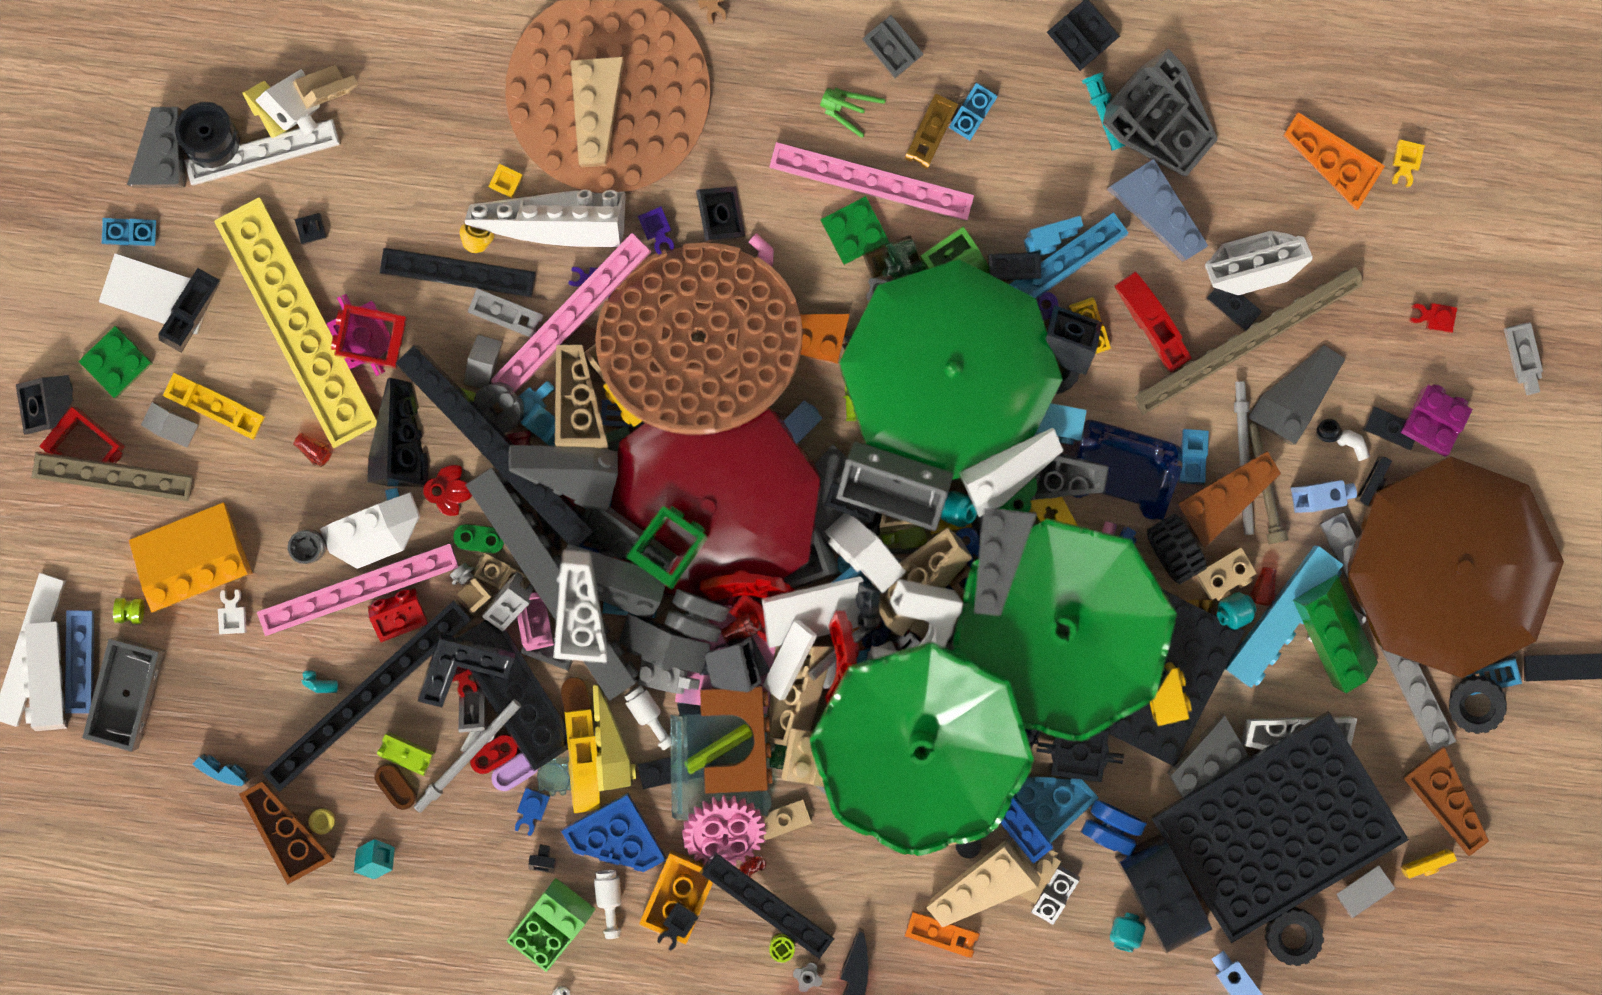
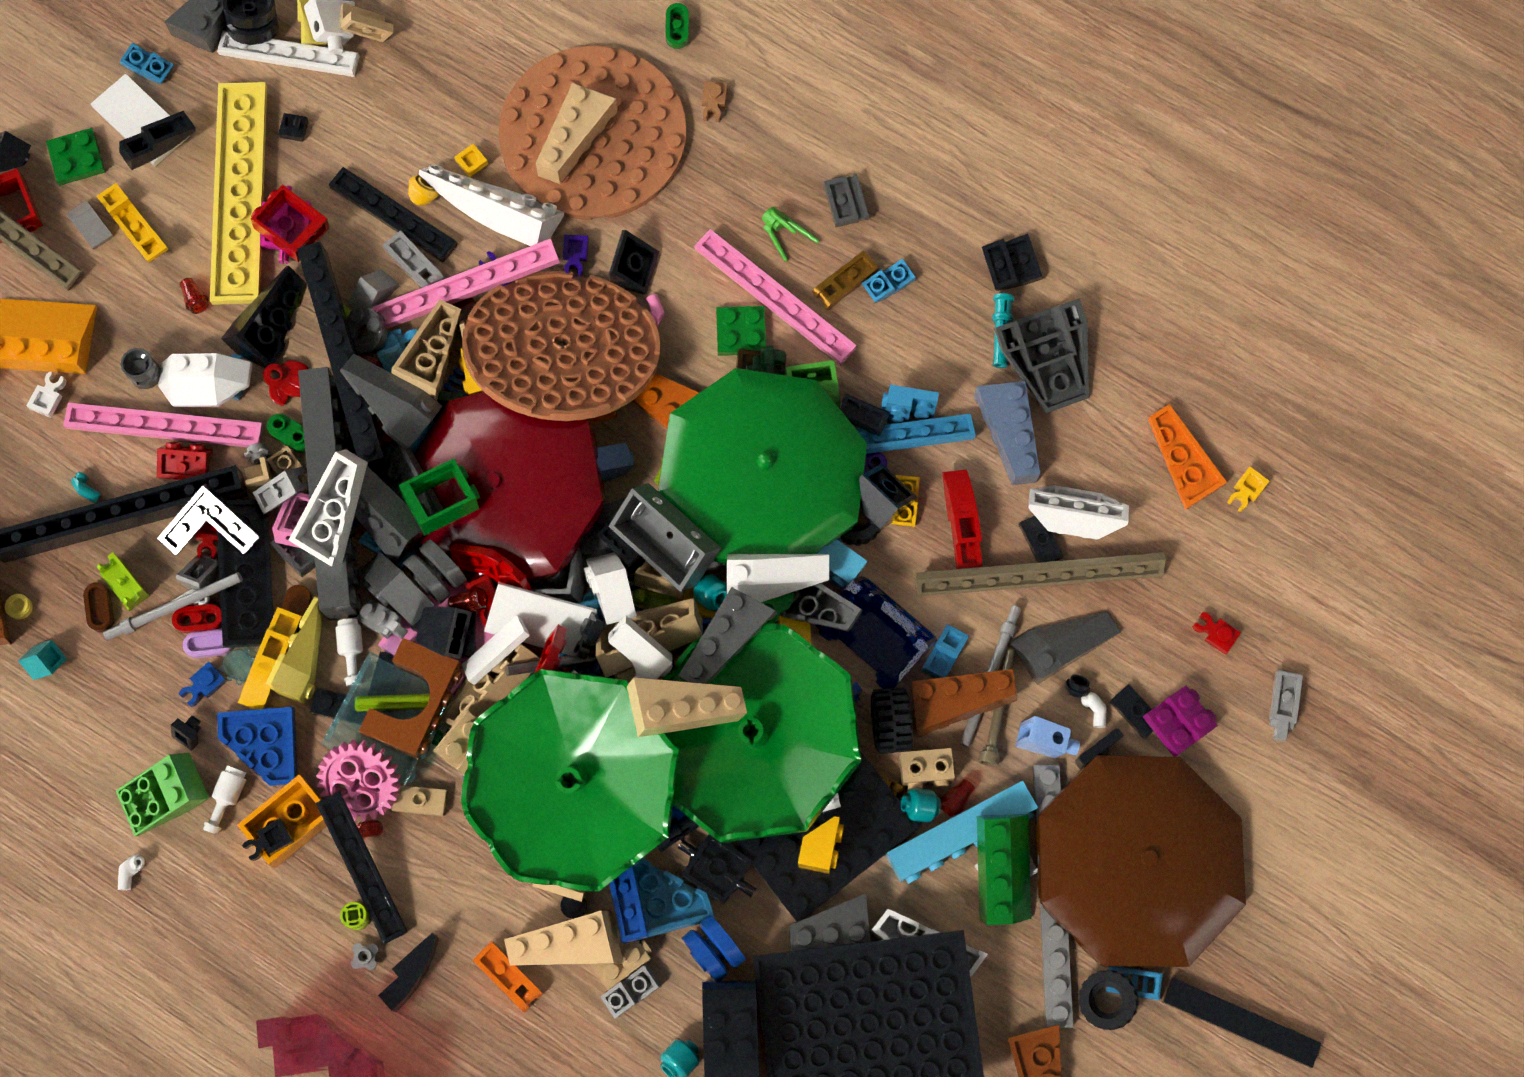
camera: 30 degrees right, 15 degrees down
(993, 648) = (678, 706): none -> tan wedge

